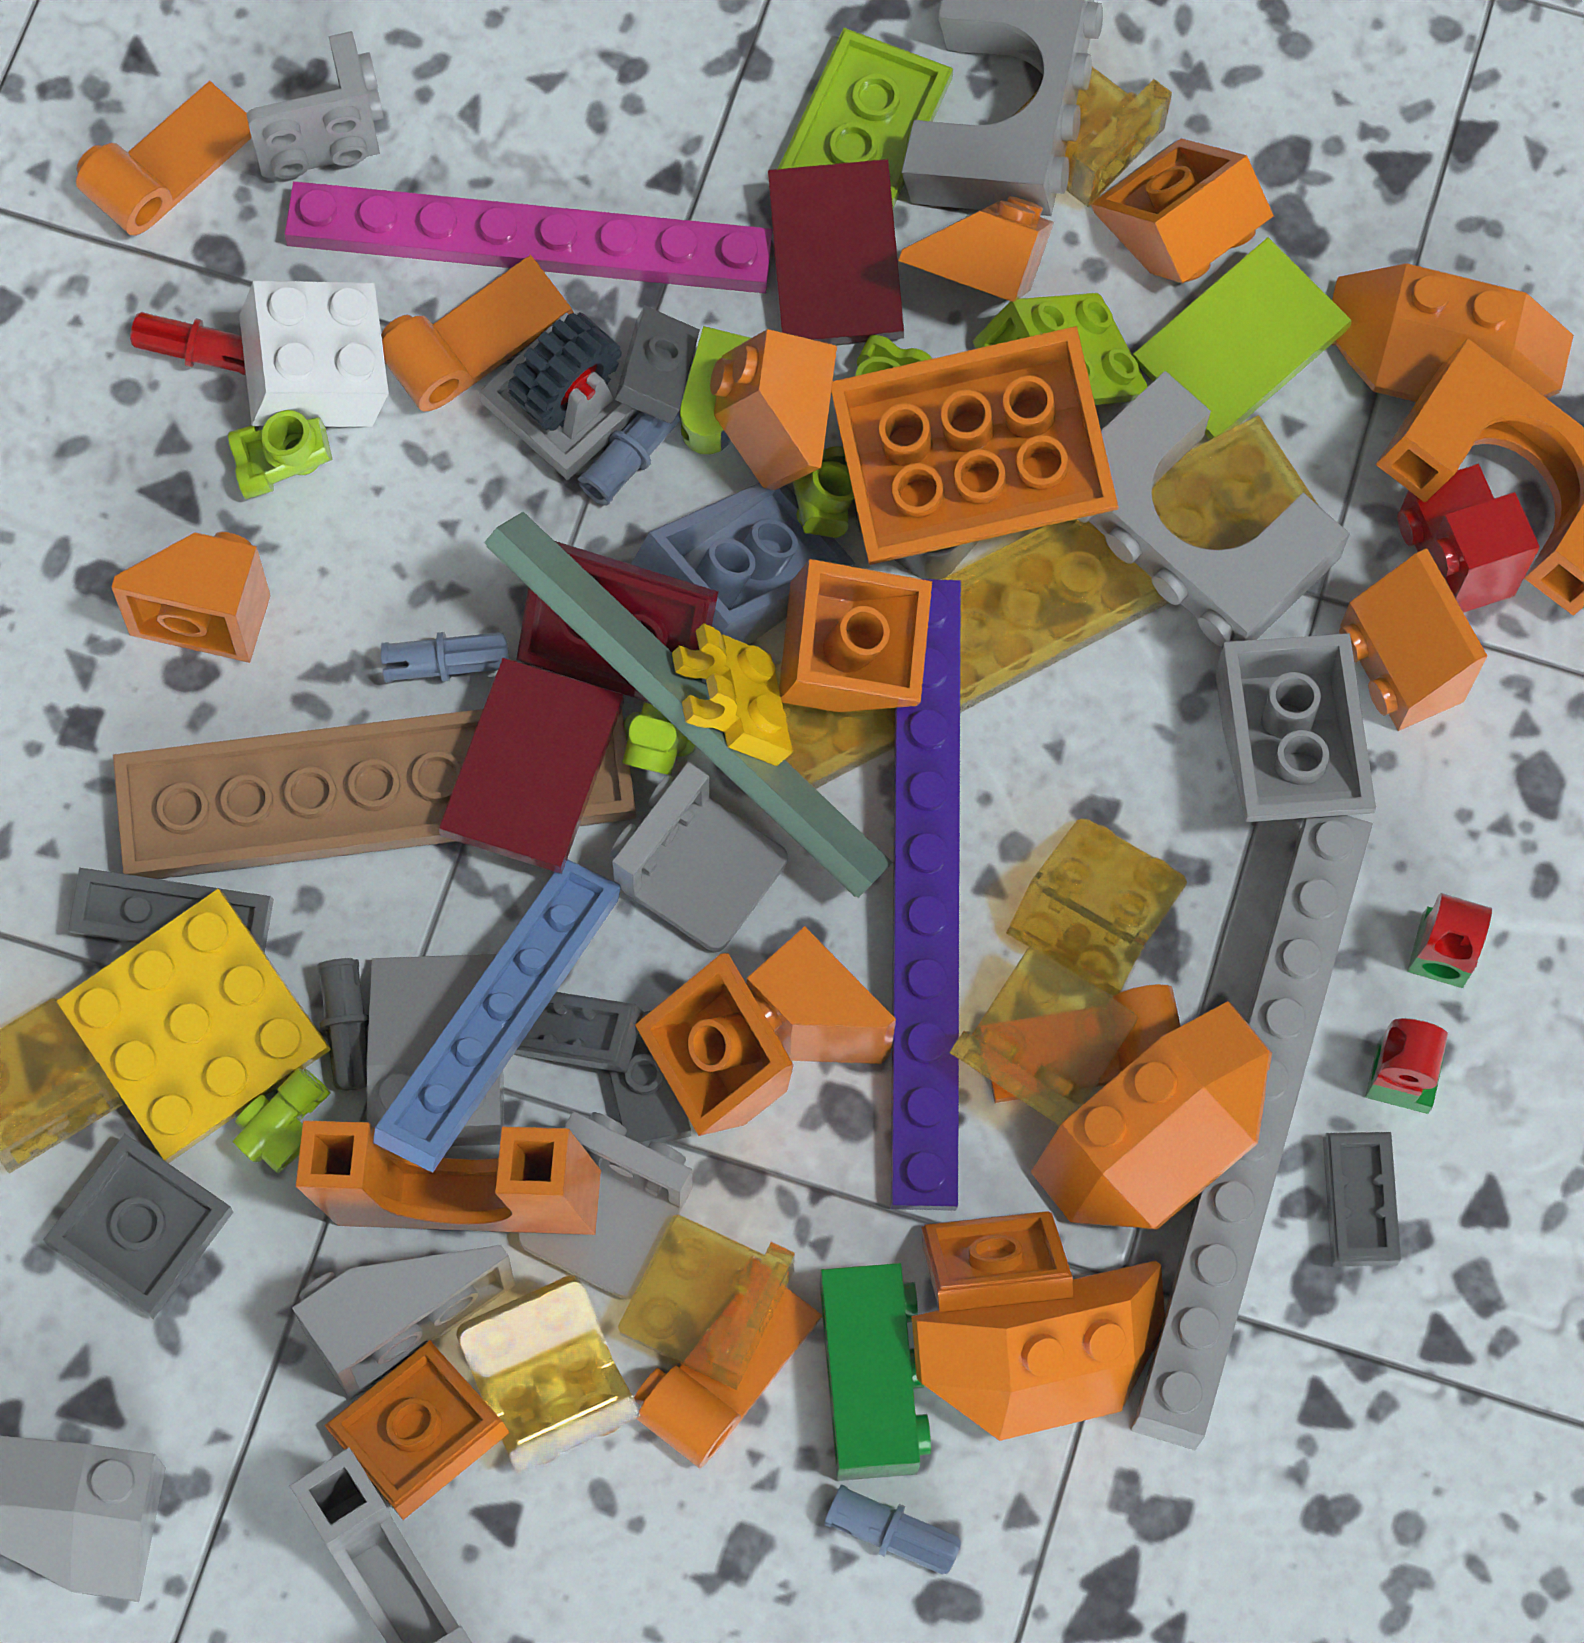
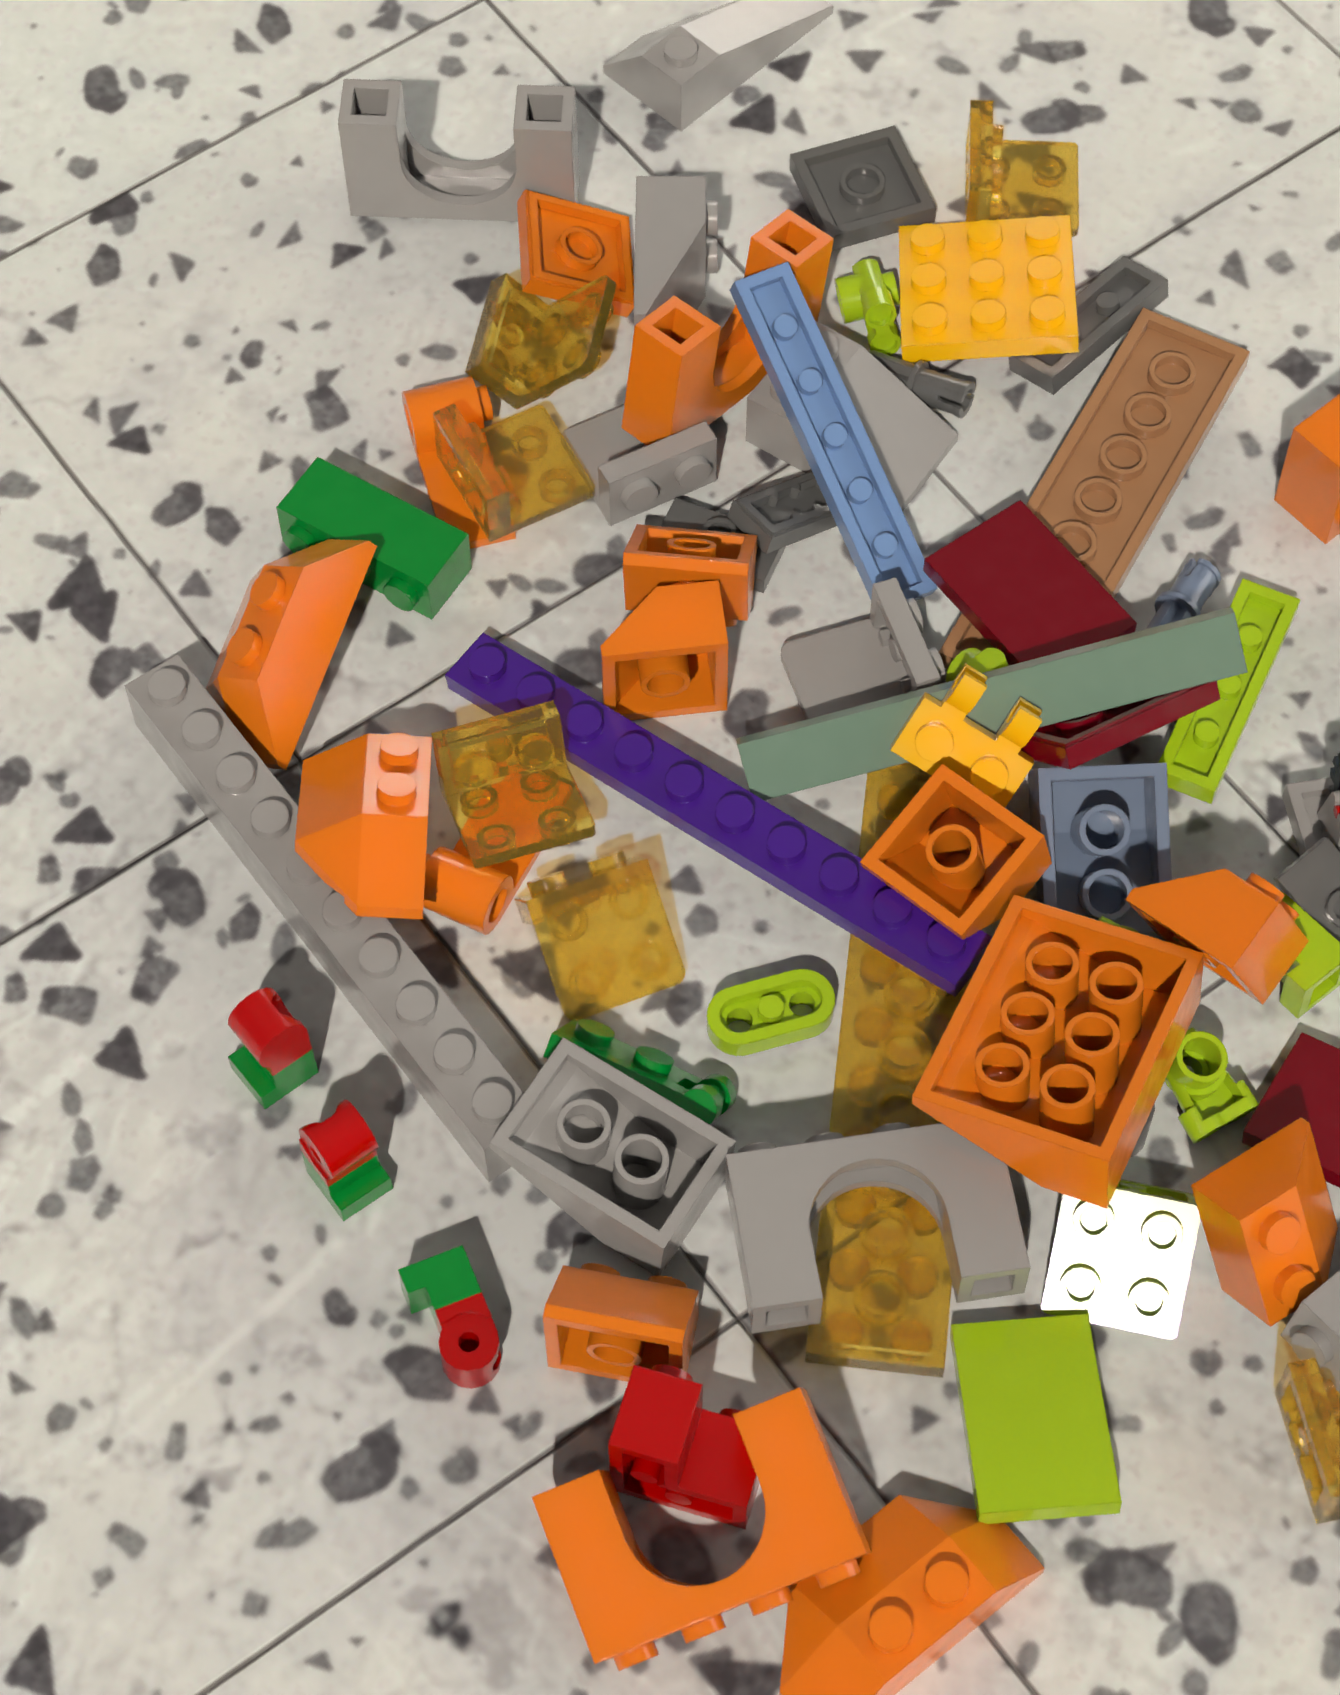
camera: 130 degrees right, 10 degrees down
(466, 576) = (1208, 737): none -> lime plate
(624, 456) = (1268, 834): sand blue axle -> none
(893, 1530) = (251, 490): sand blue axle -> none
(996, 1261) = (375, 651): orange tile -> none
(1070, 725) = (767, 1009): none -> lime plate
(1185, 209) = (1209, 1461): orange slope -> none
(1200, 781) = (652, 1068): none -> green plate
(1361, 1199) = (205, 952): dark grey plate -> none
(1497, 762) = (461, 1314): none -> leg

